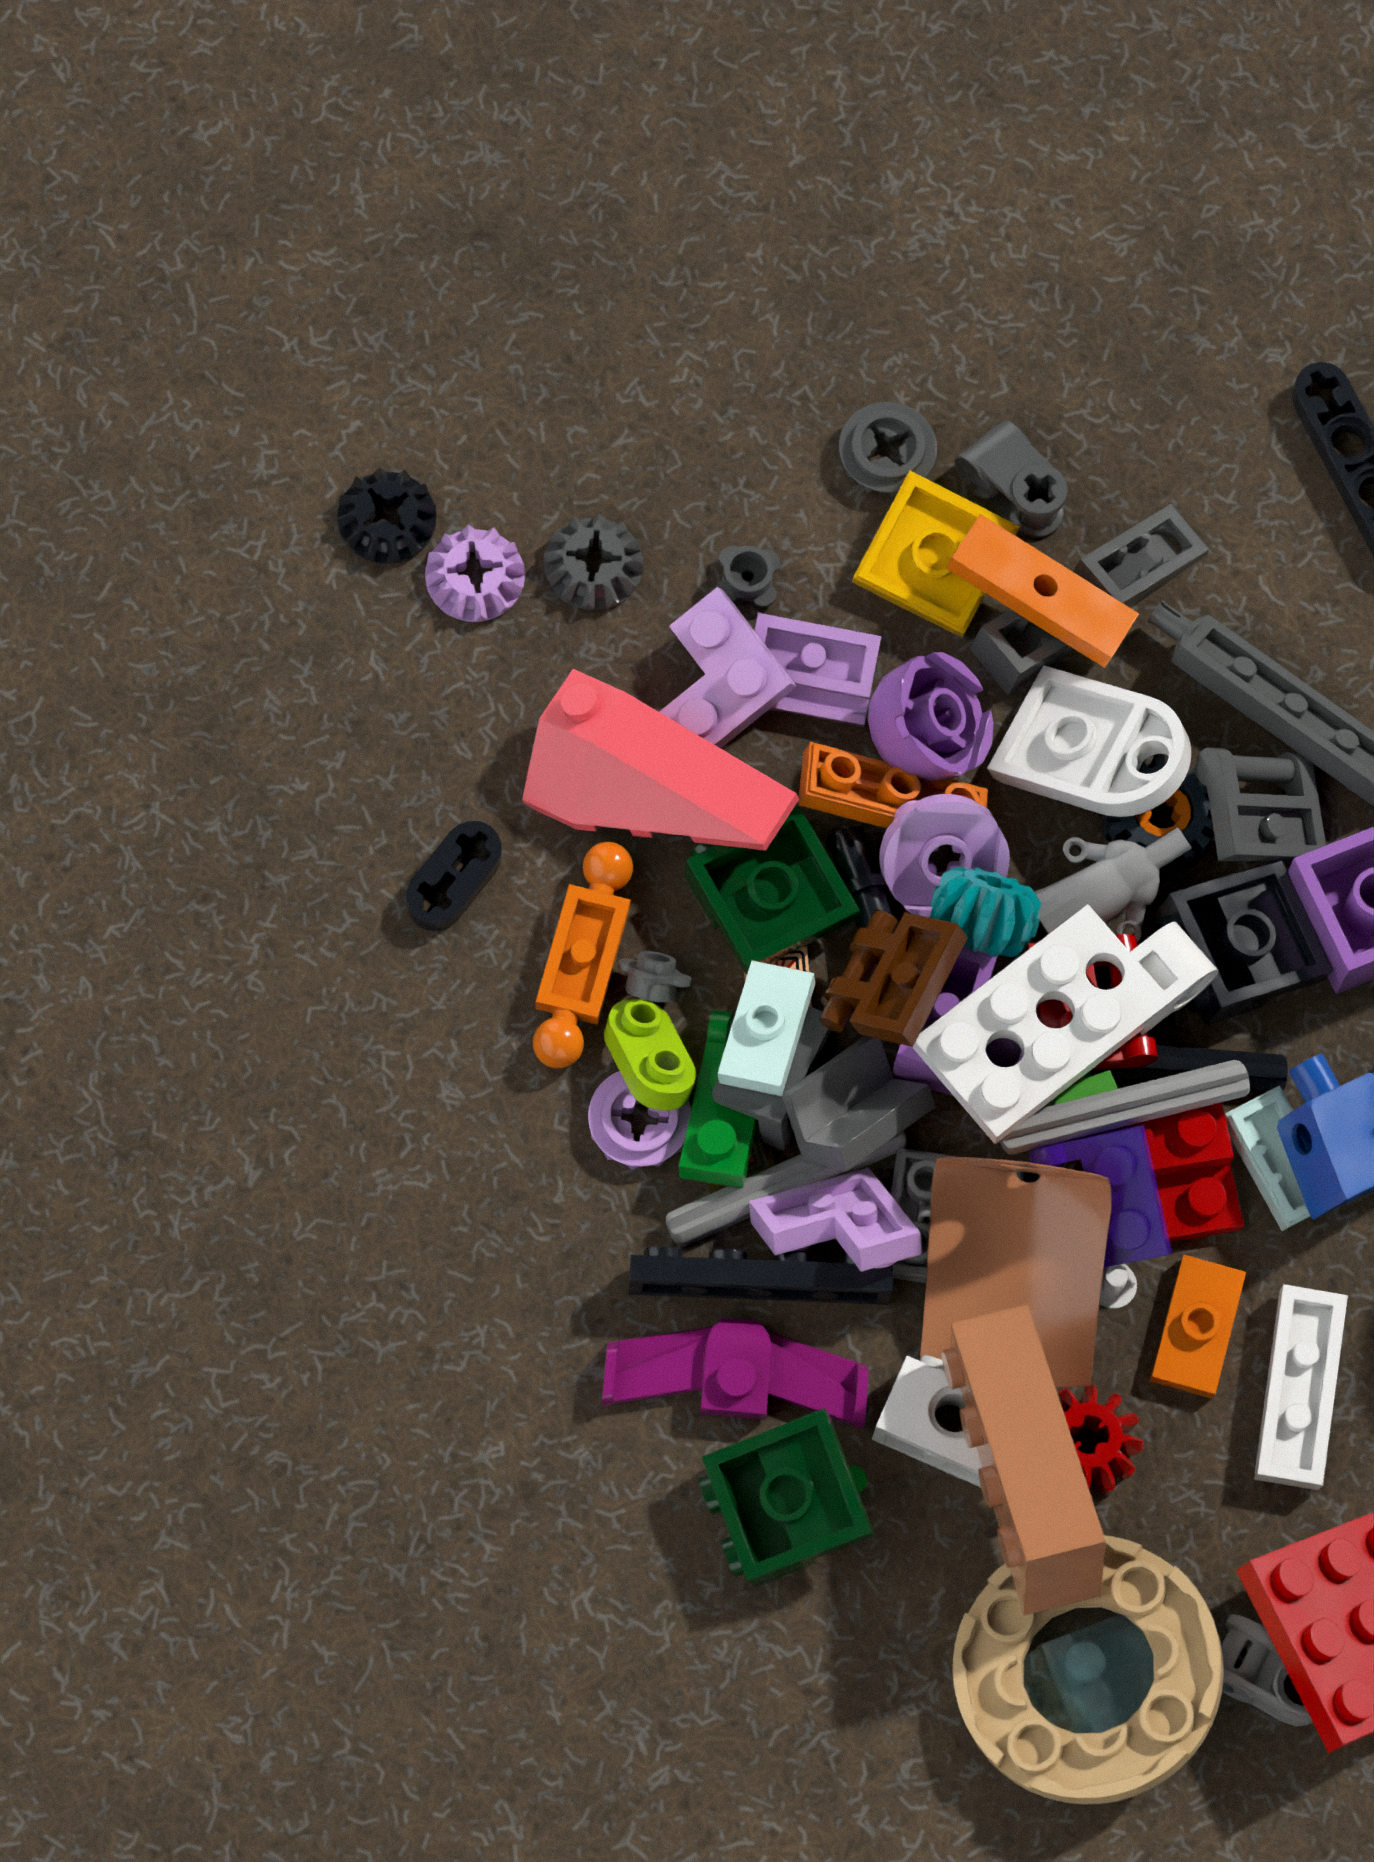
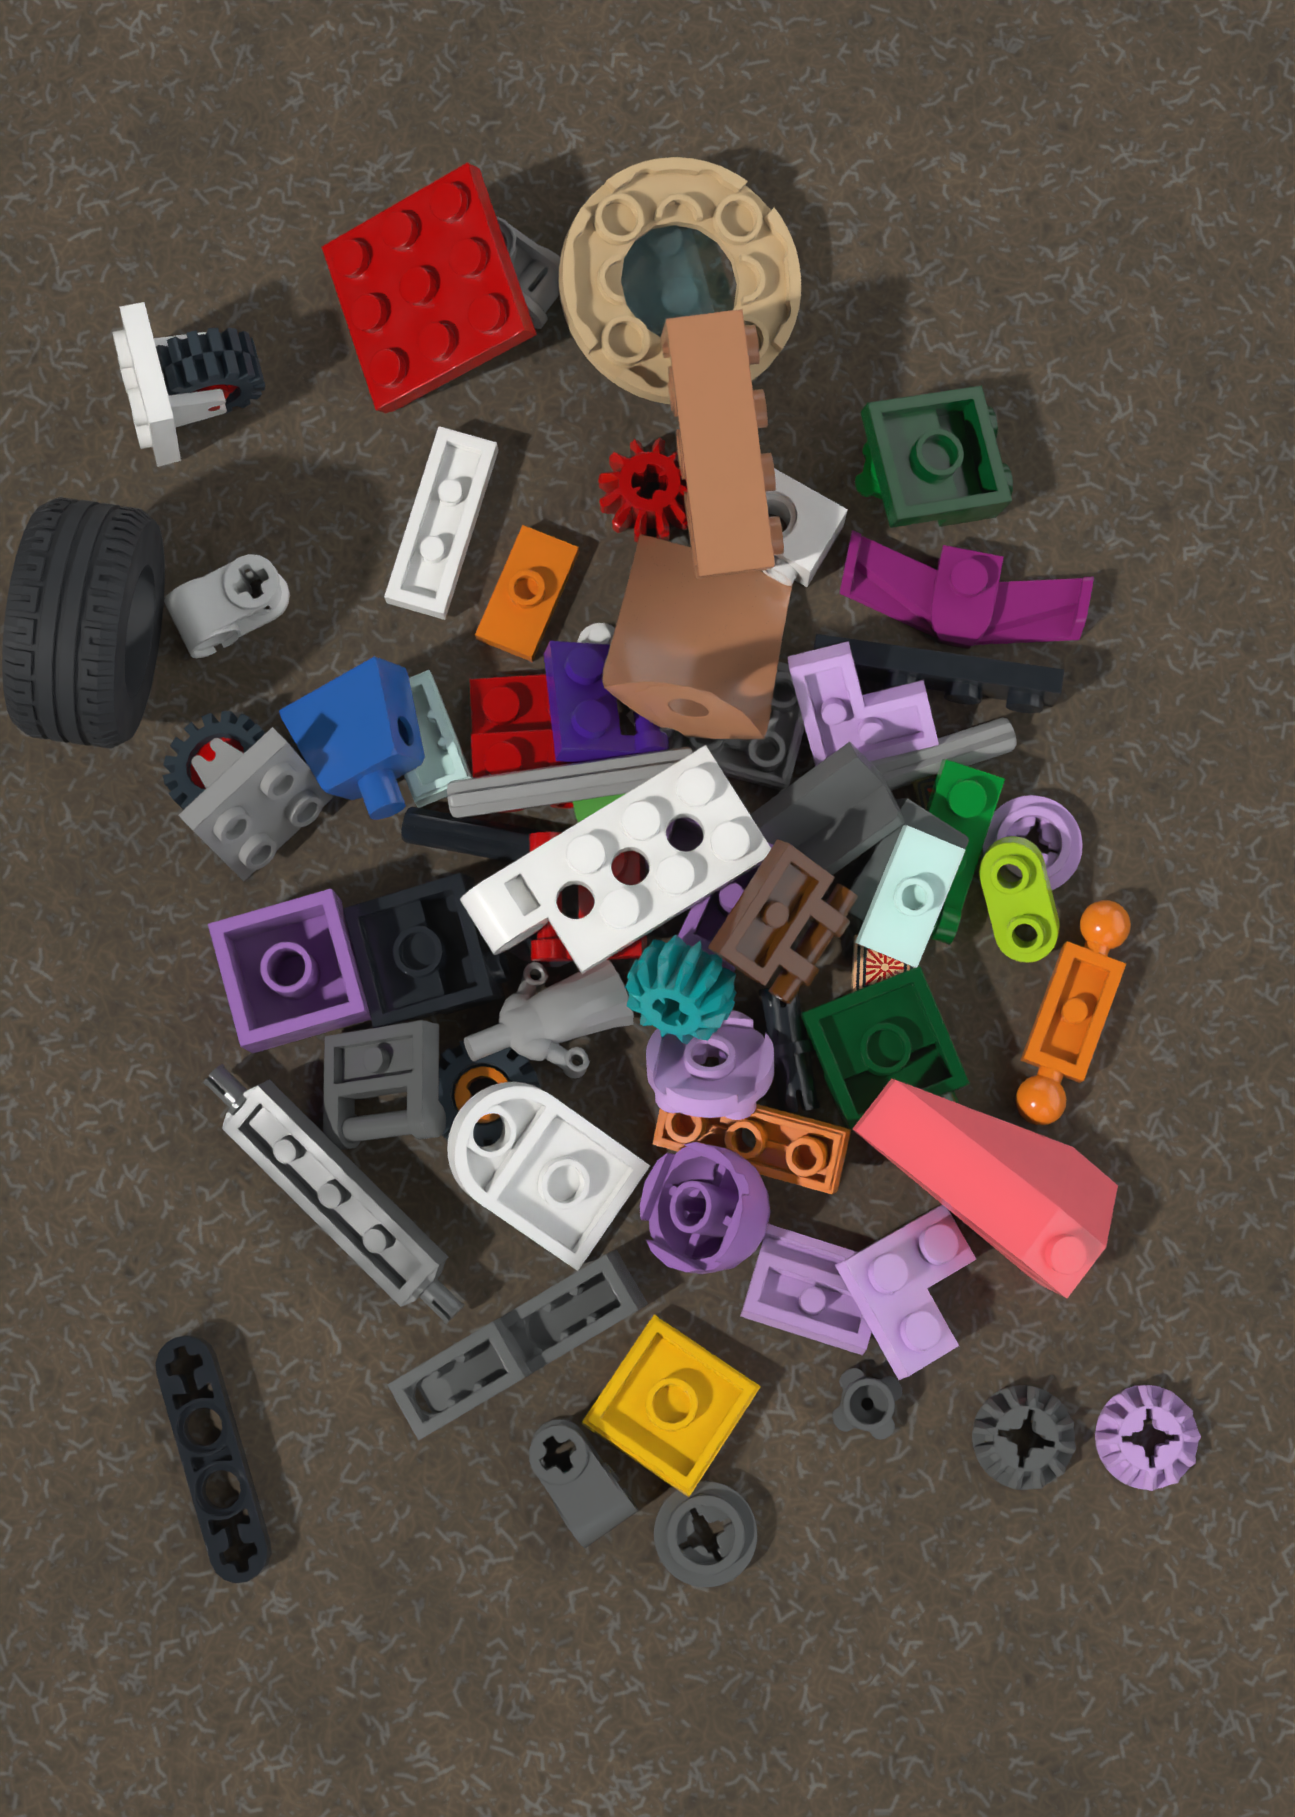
camera: 165 degrees left, 10 degrees up
(383, 541) = (1204, 1507): black gear -> none
(465, 884) = (1203, 1120): black beam -> none
(653, 976) = (1007, 979): dark grey plate -> none
(1042, 590) = (539, 1314): orange tile -> none

